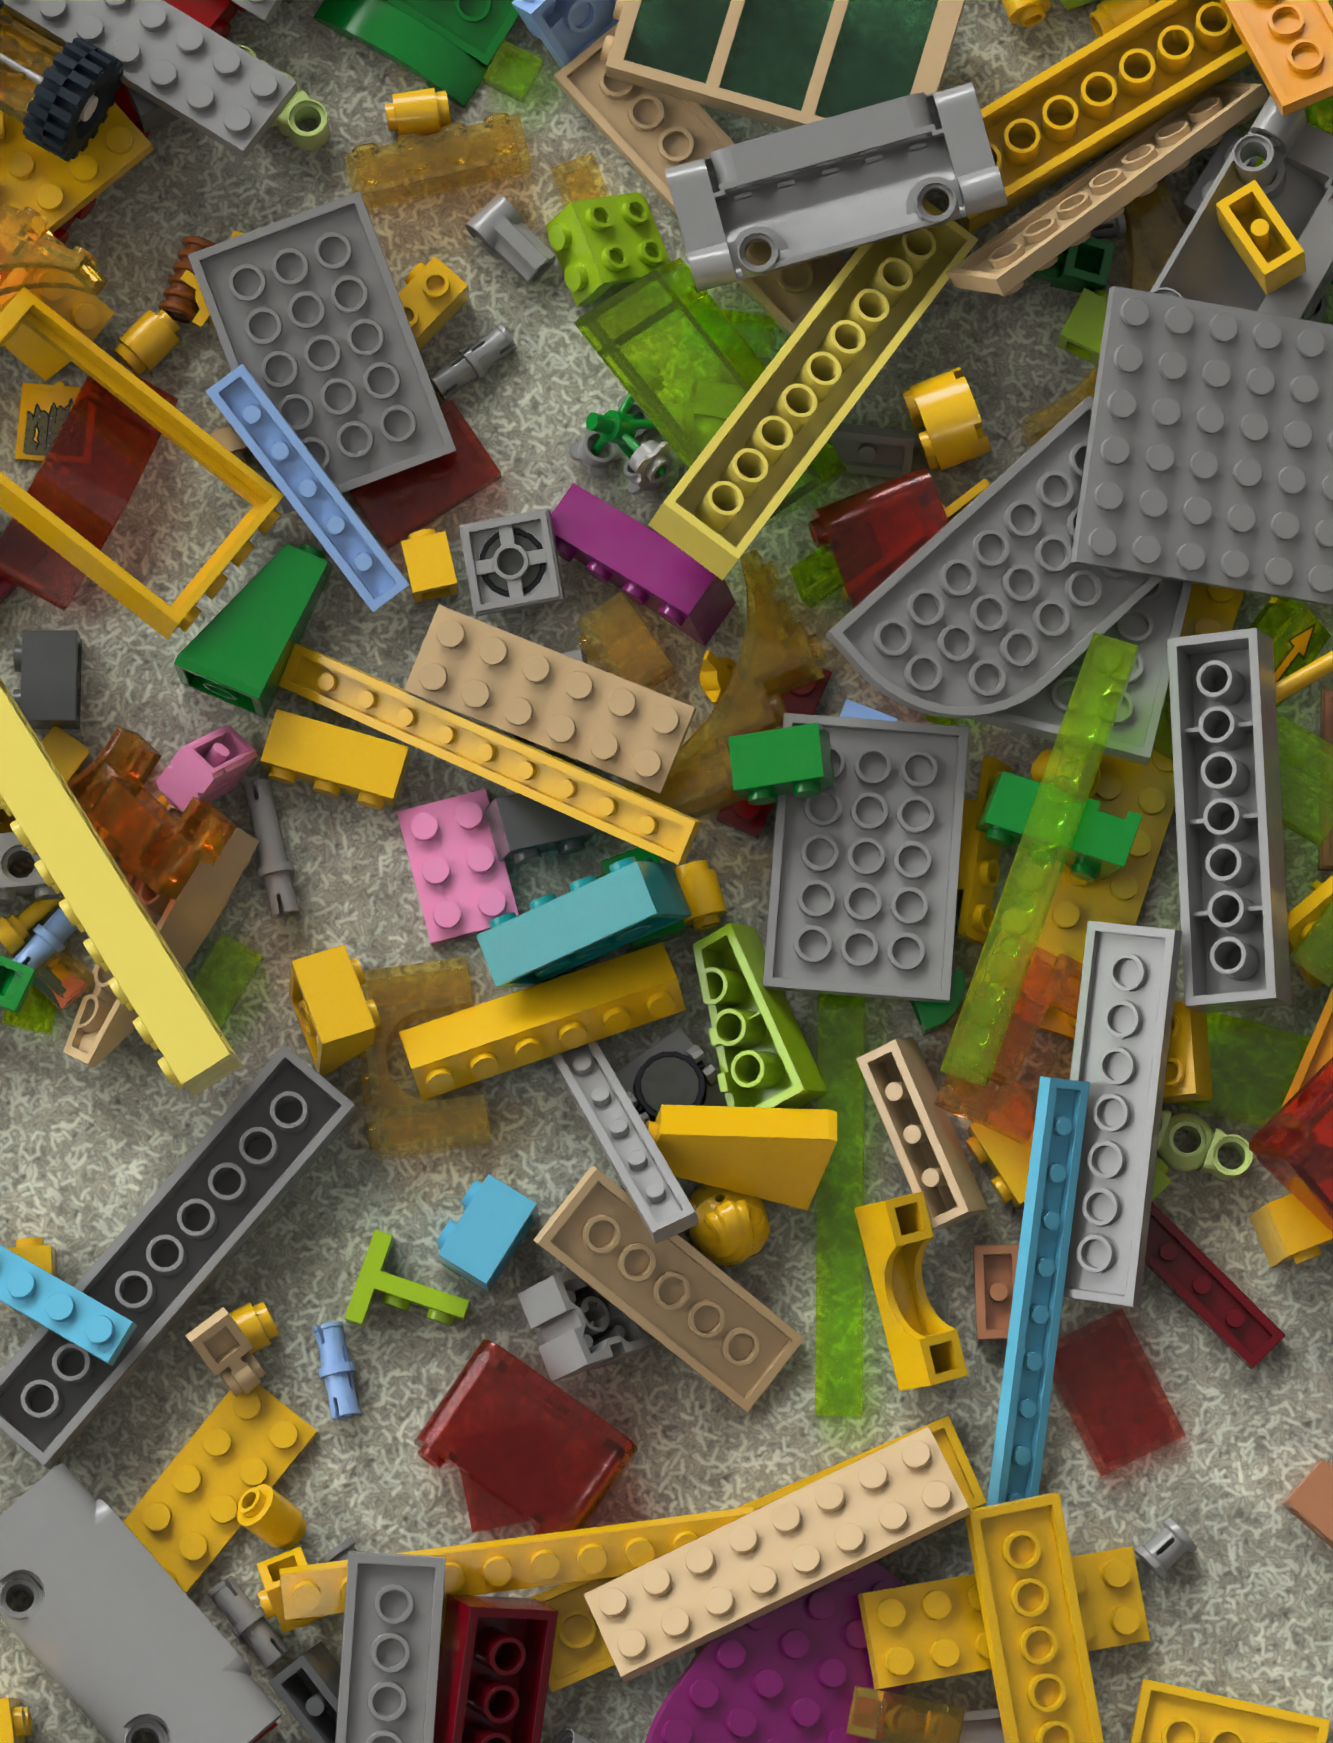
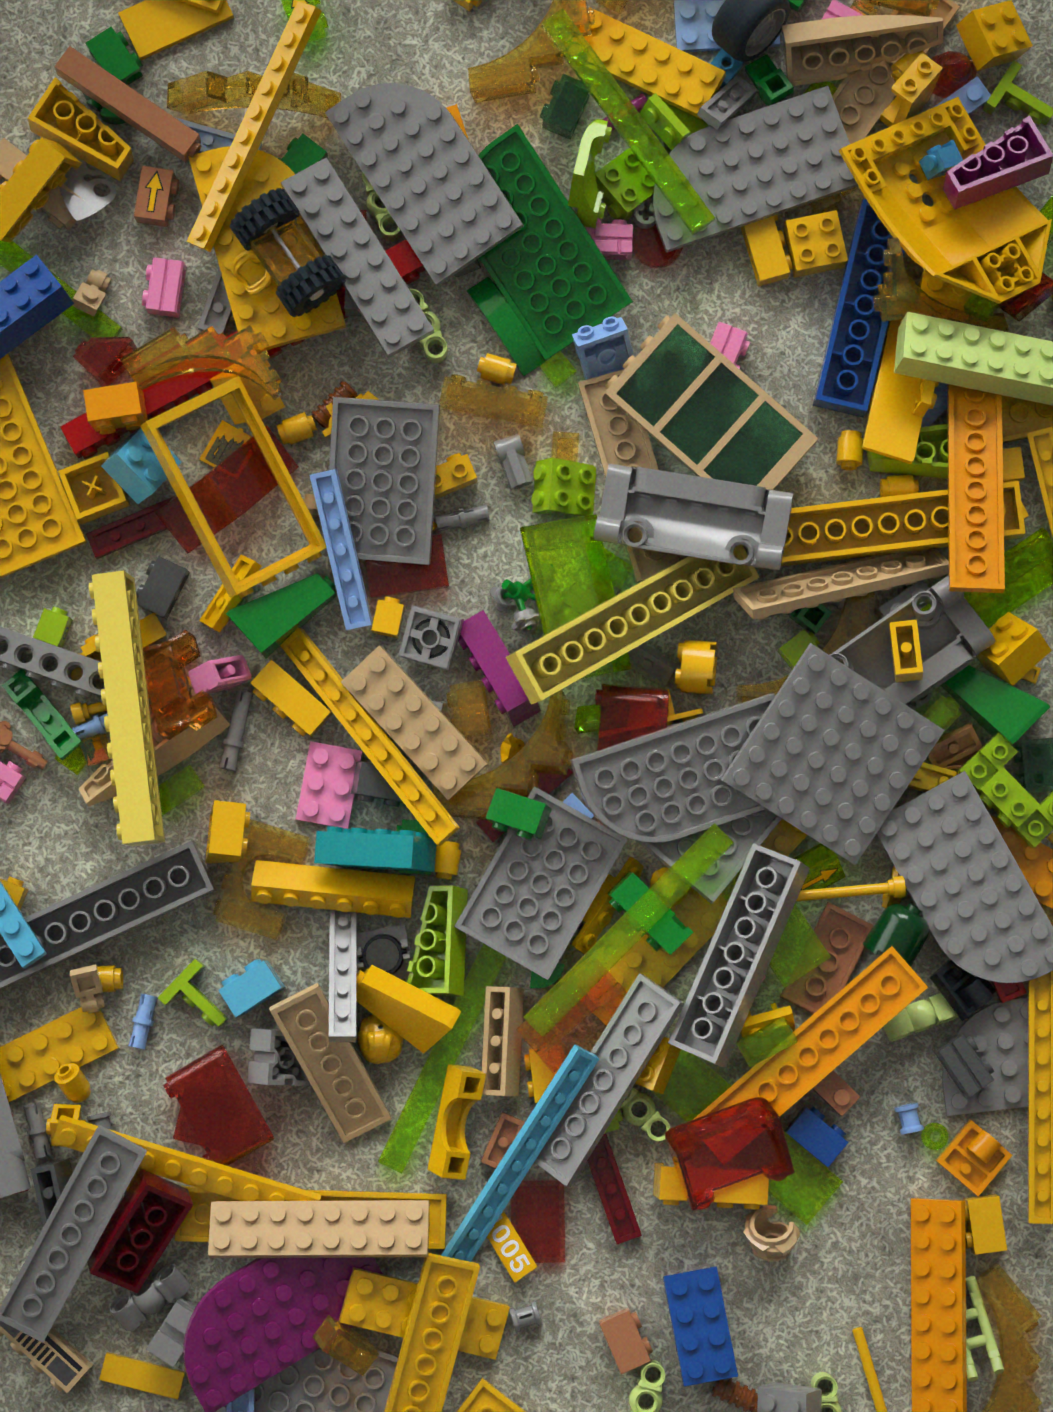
camera: 25 degrees right, 5 degrees up
(156, 675) = (215, 614): none -> yellow plate
(1091, 1453) = (510, 1248): none -> yellow sticker

